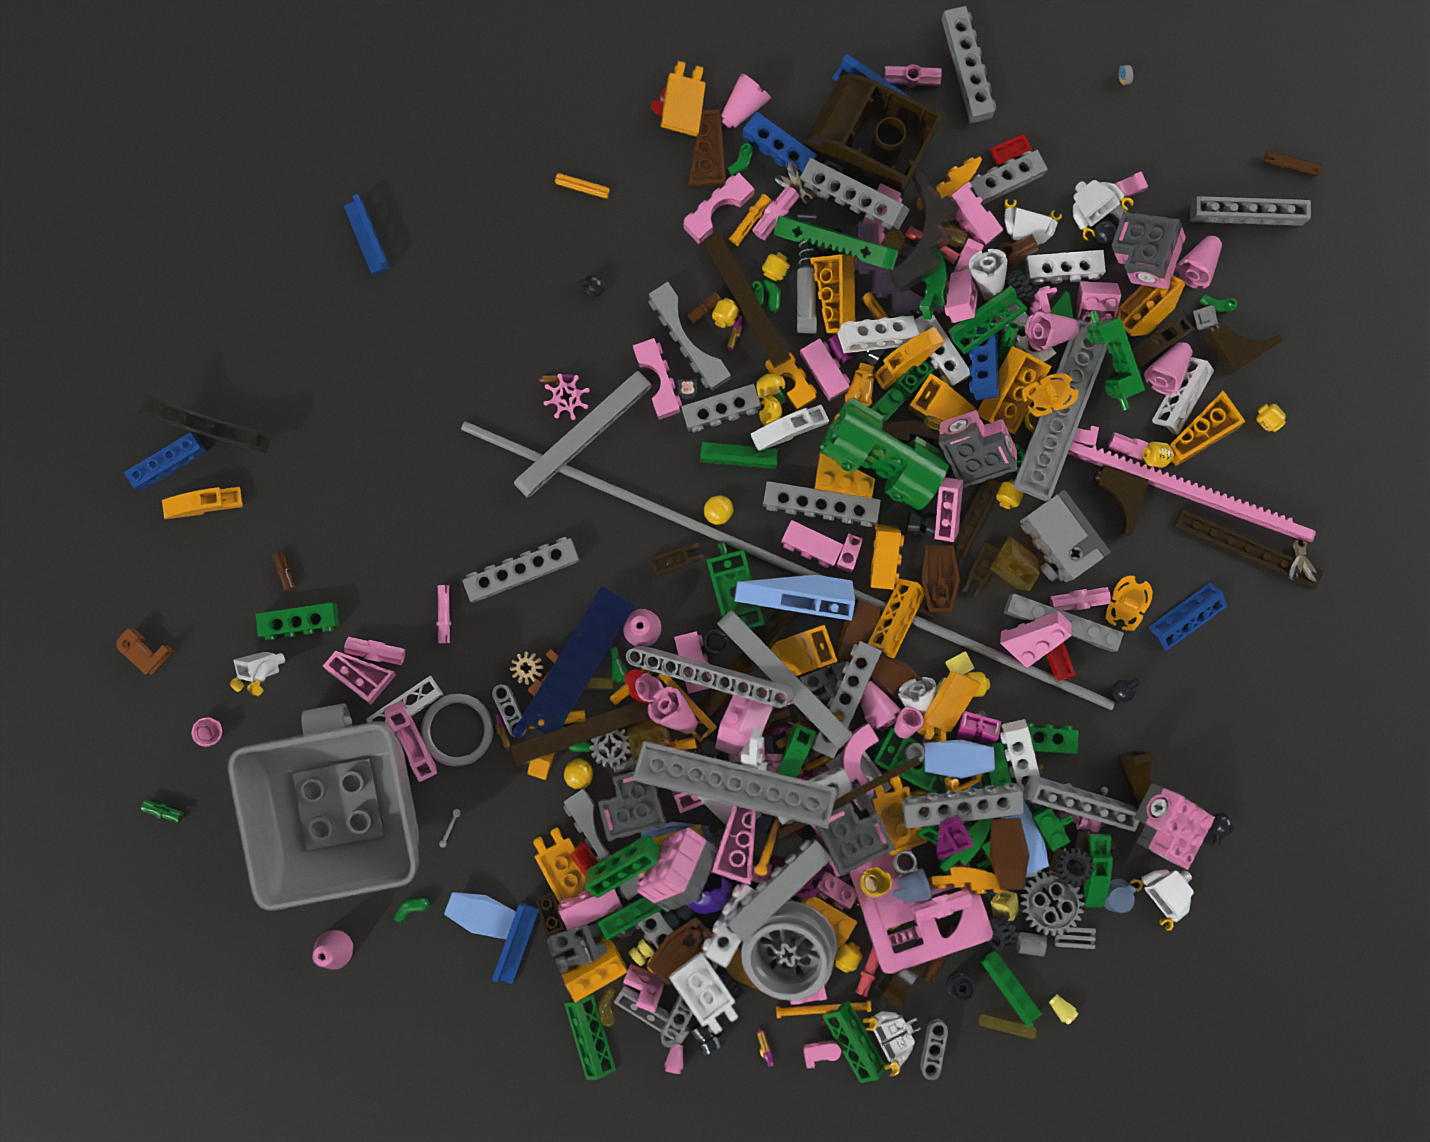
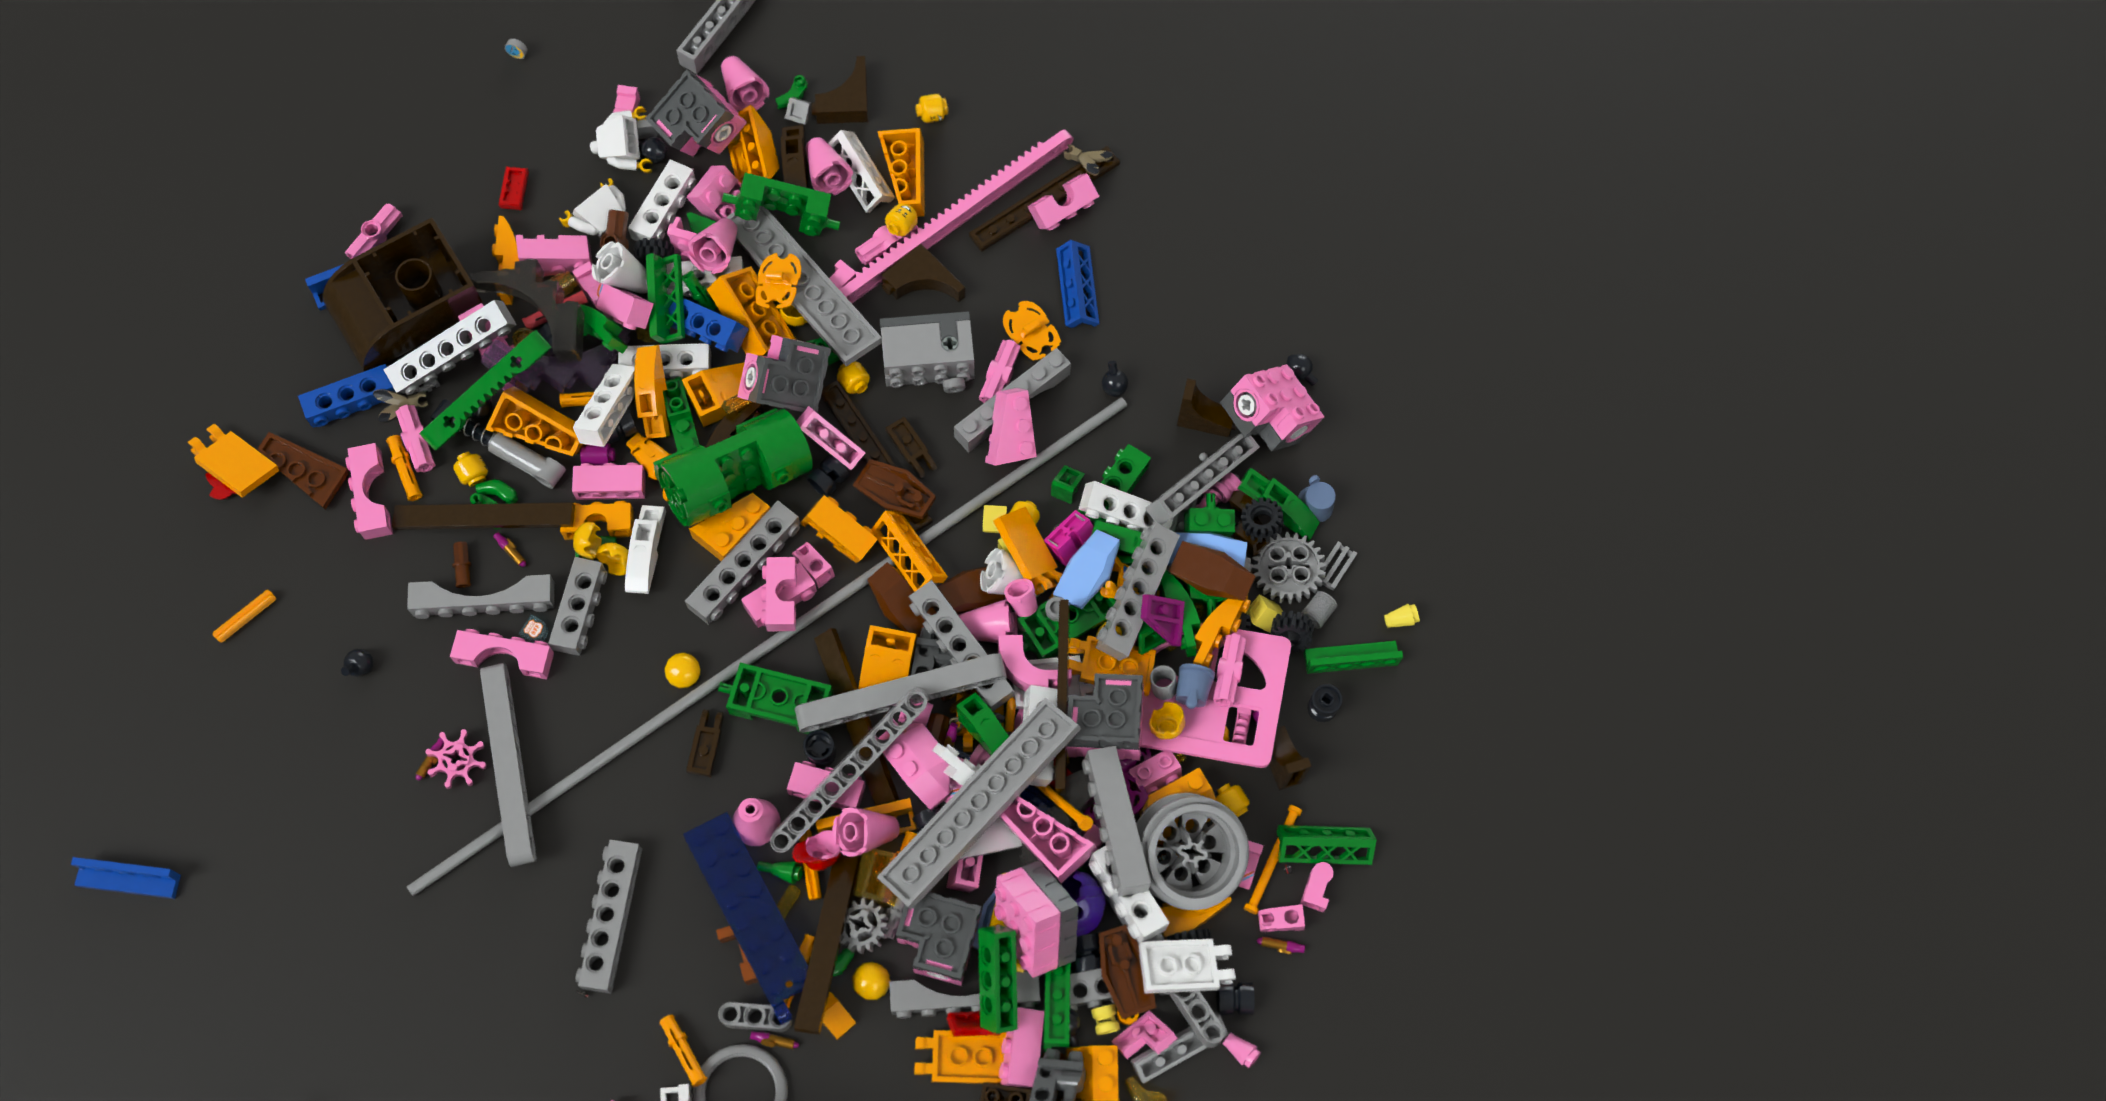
camera: 65 degrees left, 15 degrees down
(443, 614) = (610, 1037): bright pink pin -> none
(461, 675) = (678, 1042): none -> light orange pin
(521, 672) = (719, 962): tan gear -> none
(725, 313) = (482, 545): yellow head -> none
(738, 455) = (639, 617): green fence -> none
(743, 160) = (339, 441): green arm -> none
(744, 101) = (278, 402): bright pink cone -> none
(782, 1039) = (1282, 919): none -> bright pink leg
(801, 594) = (823, 630): light blue wedge -> none
(823, 536) = (779, 574): none -> bright pink arch
(868, 974) = (1259, 788): coral pin -> none
(894, 1037) = (1341, 800): white torso -> none
(933, 1058) = (1387, 769): light grey beam -> none
(935, 964) = (1286, 714): reddish brown pin -> none
(962, 18) = (347, 169): light grey brick -> none
(1007, 1026) = (1391, 682): clear yellow axle -> none
(1017, 565) = (929, 410): clear yellow slope -> none
(1021, 701) = (1067, 484): none -> green slope
(1030, 160) = (538, 175): light grey brick -> none
(1060, 663) = (1051, 425): red plate -> none
(1169, 892) = (1339, 450): white torso -> none
(1264, 575) = (1079, 193): none -> bright pink arch

